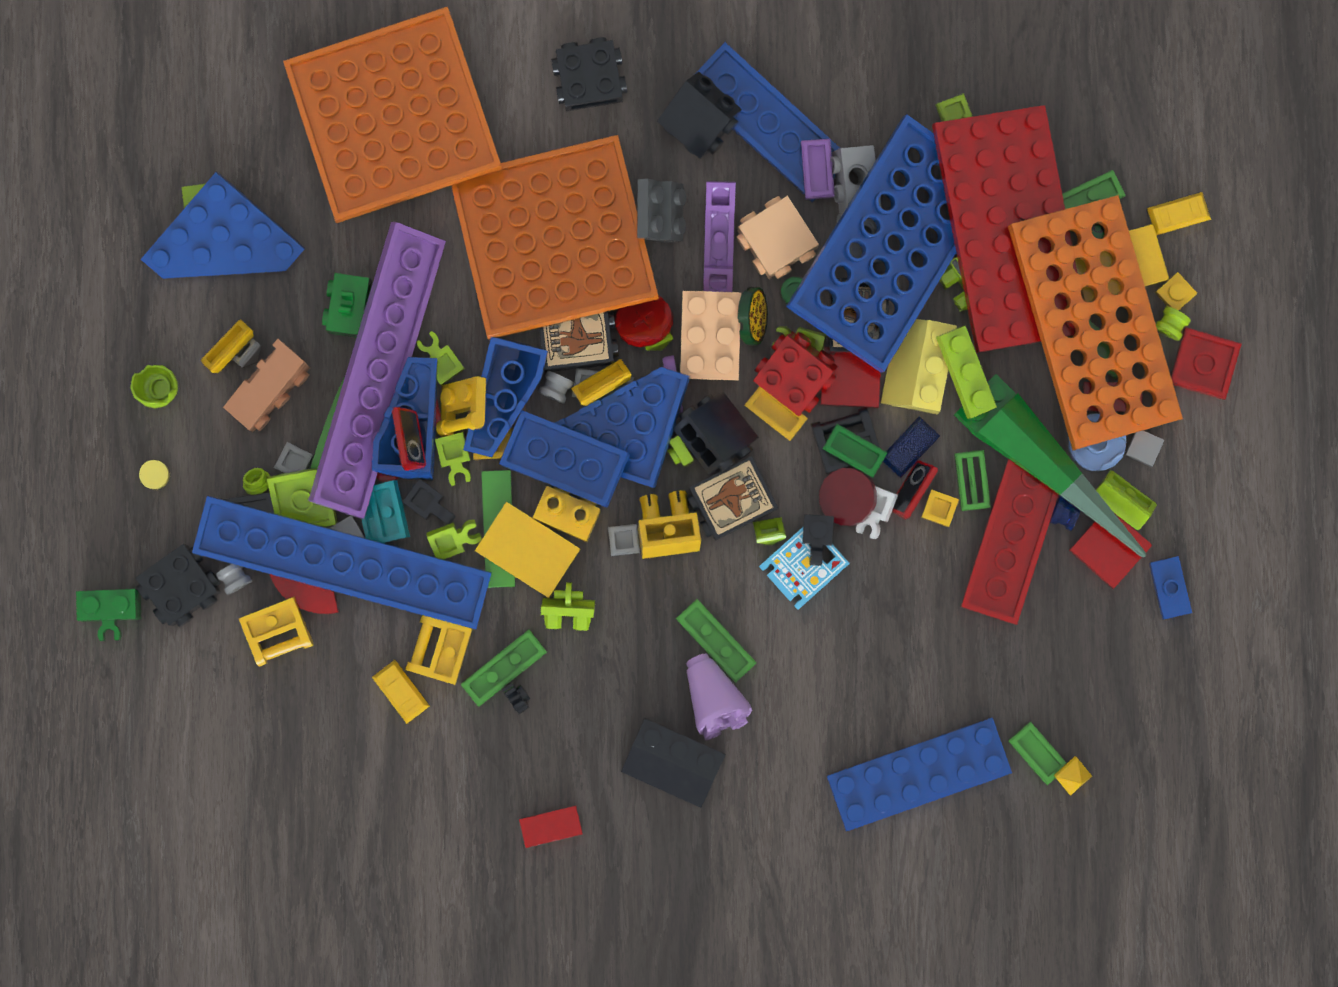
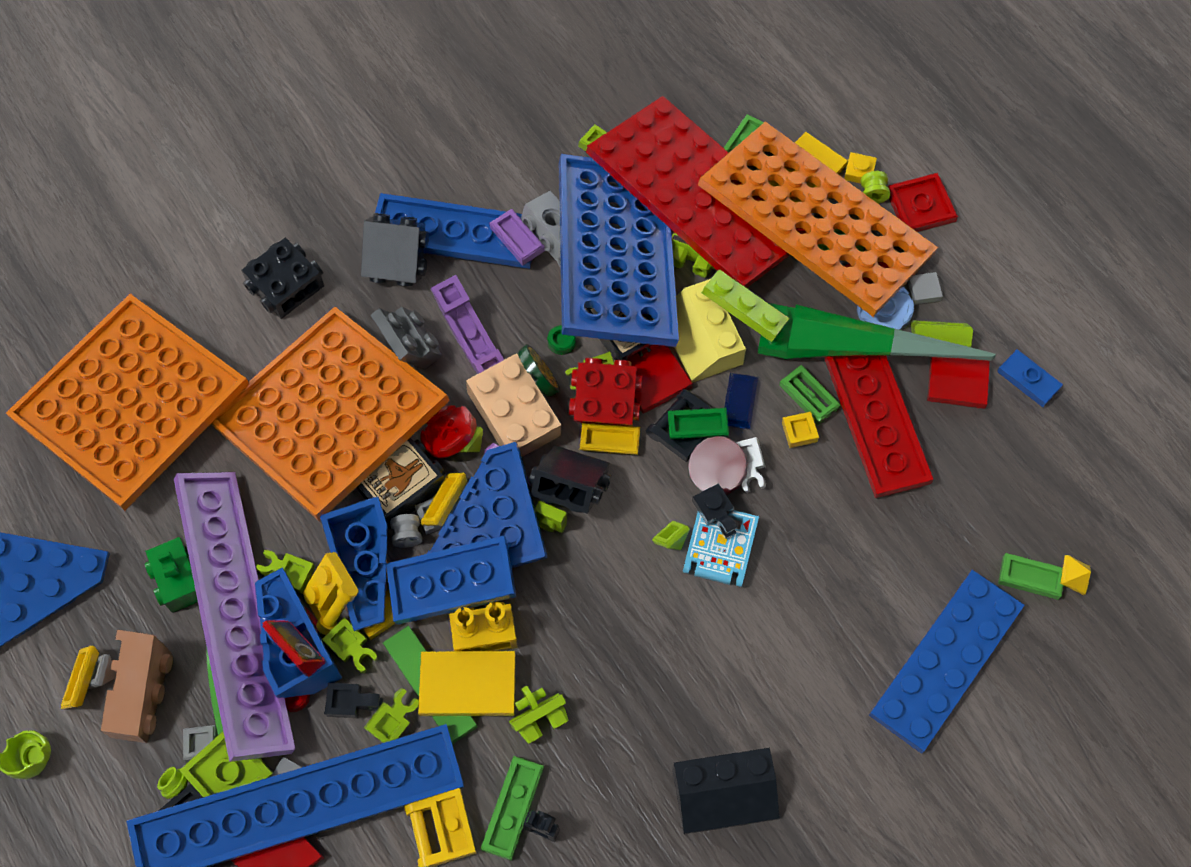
camera: 30 degrees left, 20 degrees down
(154, 474) = (67, 840): light yellow tile -> none
(385, 514) = (314, 734): teal plate -> none
(624, 540) = (549, 623): light grey tile -> none
(668, 534) = (585, 589): yellow brick -> none
(714, 698) = (724, 706): lavender cone -> none
(716, 640) = (689, 658): bright green tile -> none
(732, 499) = (621, 528): brick -> none
(777, 238) = (519, 304): light nougat brick -> none
(913, 488) = (768, 428): slope -> none
(1065, 514) = (905, 370): clear blue wheel -> none
(1179, 213) = (819, 116): yellow tile -> none

